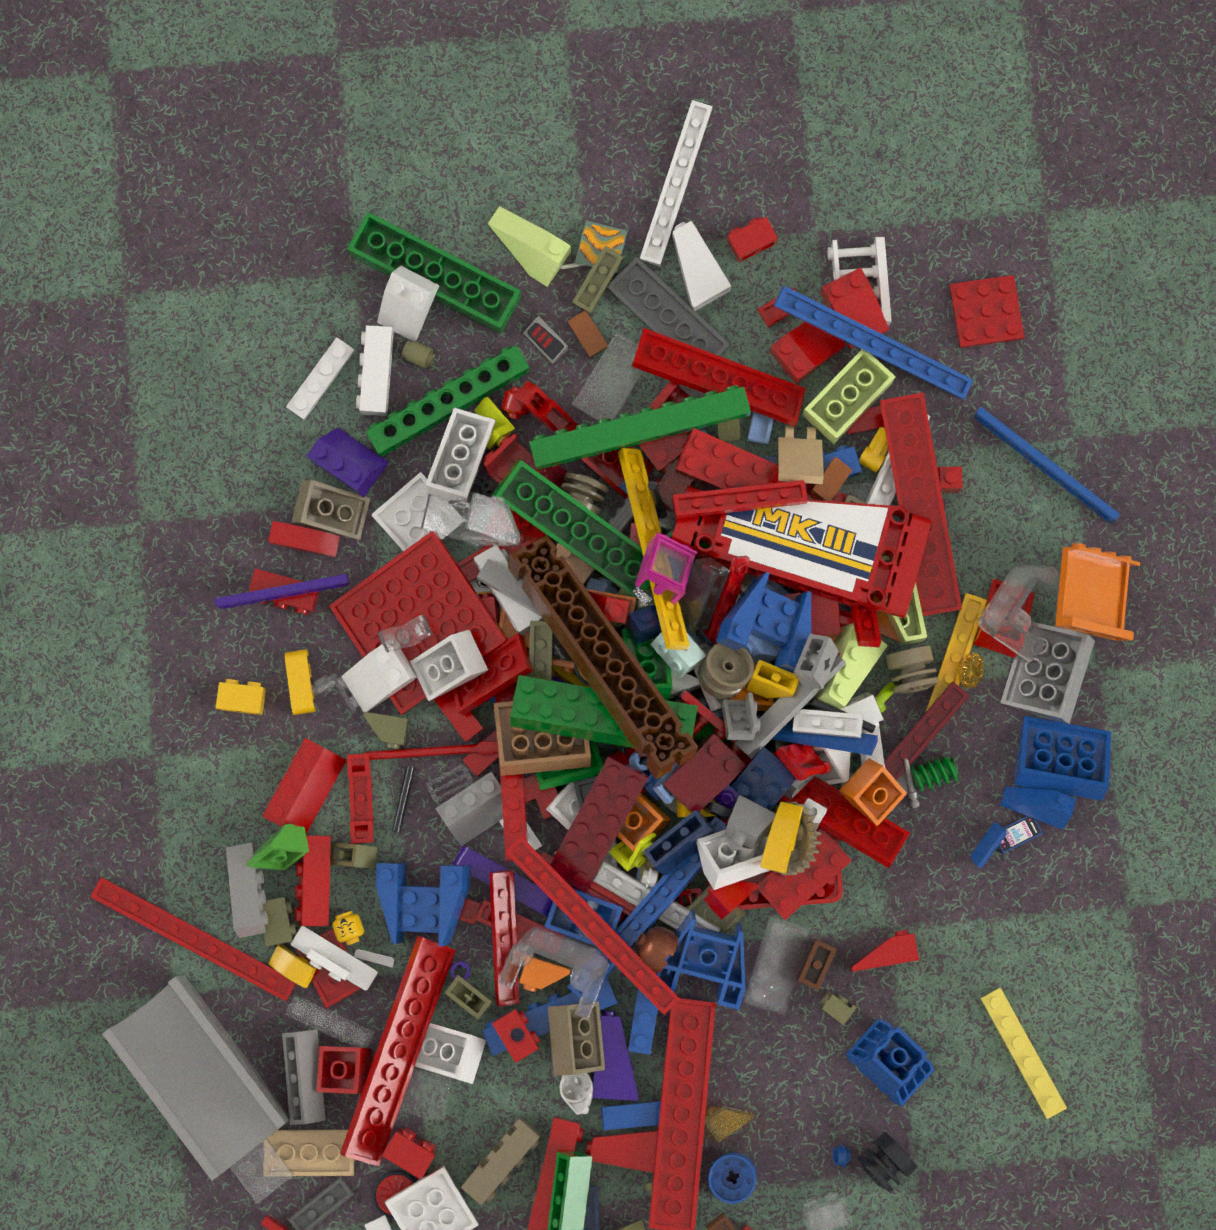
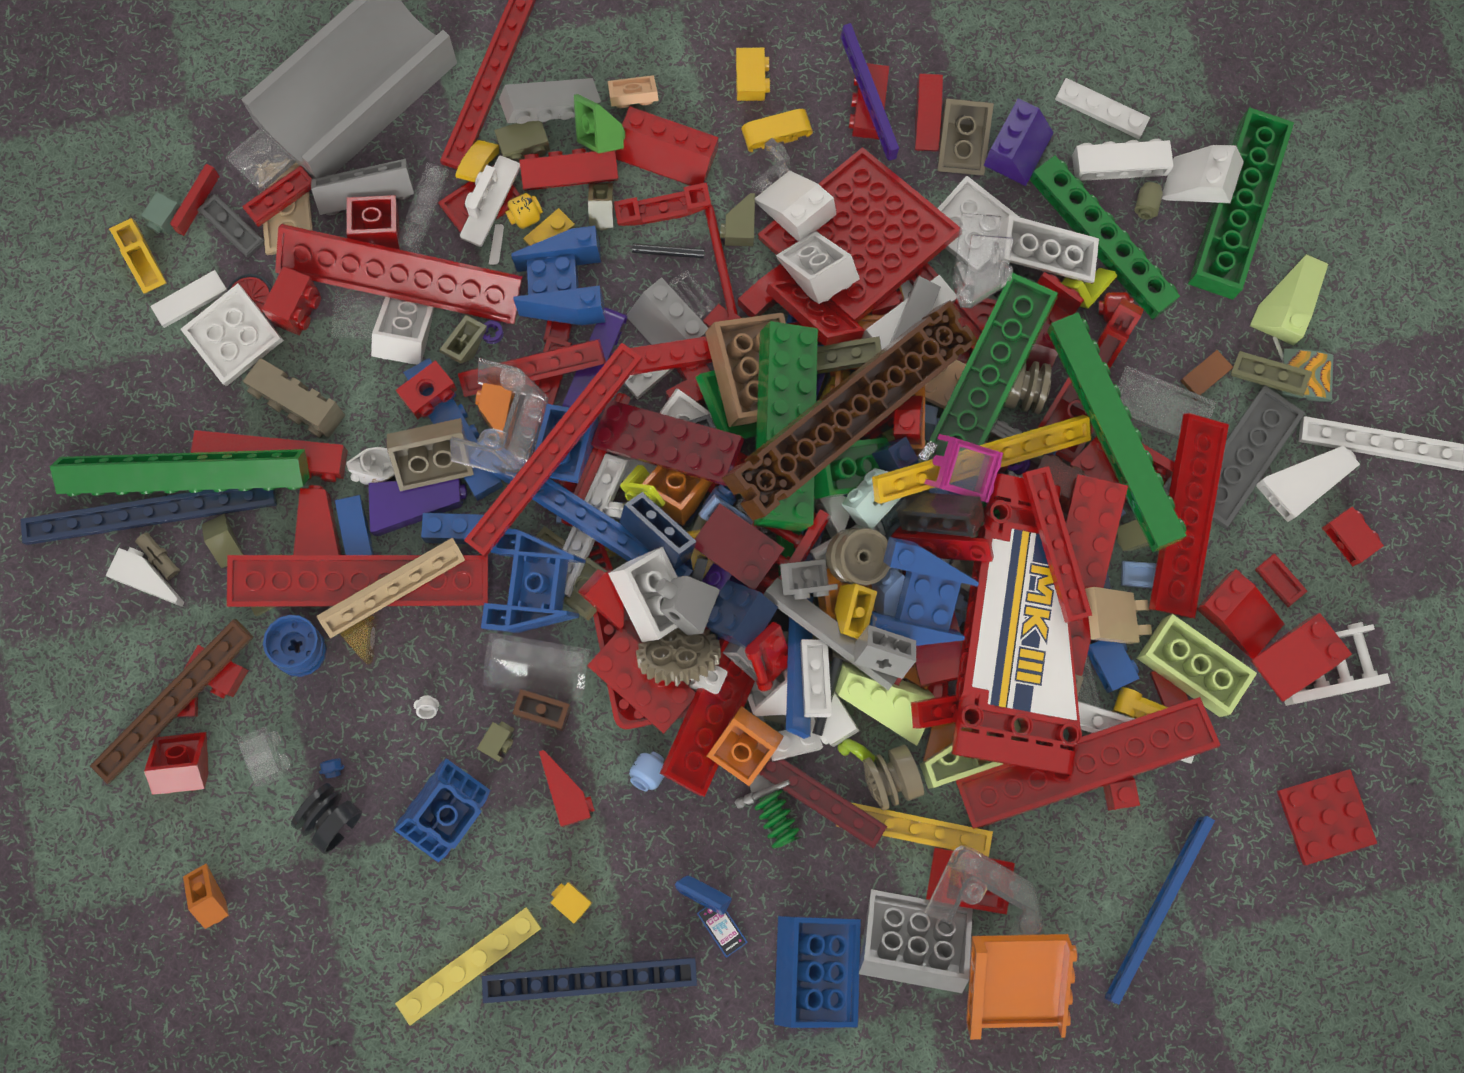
camera: 75 degrees right, 5 degrees down
(243, 811) = (633, 91): none -> light nougat plate
(299, 1157) = (278, 196): none -> red tile
(368, 906) = (551, 226): none -> yellow plate
(405, 635) = (841, 216): clear bracket -> none
(545, 340) = (1190, 330): slope -> none
(655, 494) = (1040, 456): black bar -> none
(656, 946) = (538, 522): copper cylinder -> none
(695, 1085) = (390, 588): none -> tan plate
(782, 837) = (676, 639): yellow slope -> none
(799, 1066) = (426, 707): none -> white plate
(834, 477) = (1096, 654): dark orange tile -> none
(873, 342) = (1265, 682): blue plate -> none
(879, 879) = (646, 771): none -> light blue head
(967, 676) = (900, 841): clear yellow gear -> none
(981, 959) = (570, 901): none -> yellow brick
(1041, 804) = (759, 949): blue slope -> none
(1048, 950) = (589, 980): none -> dark blue brick

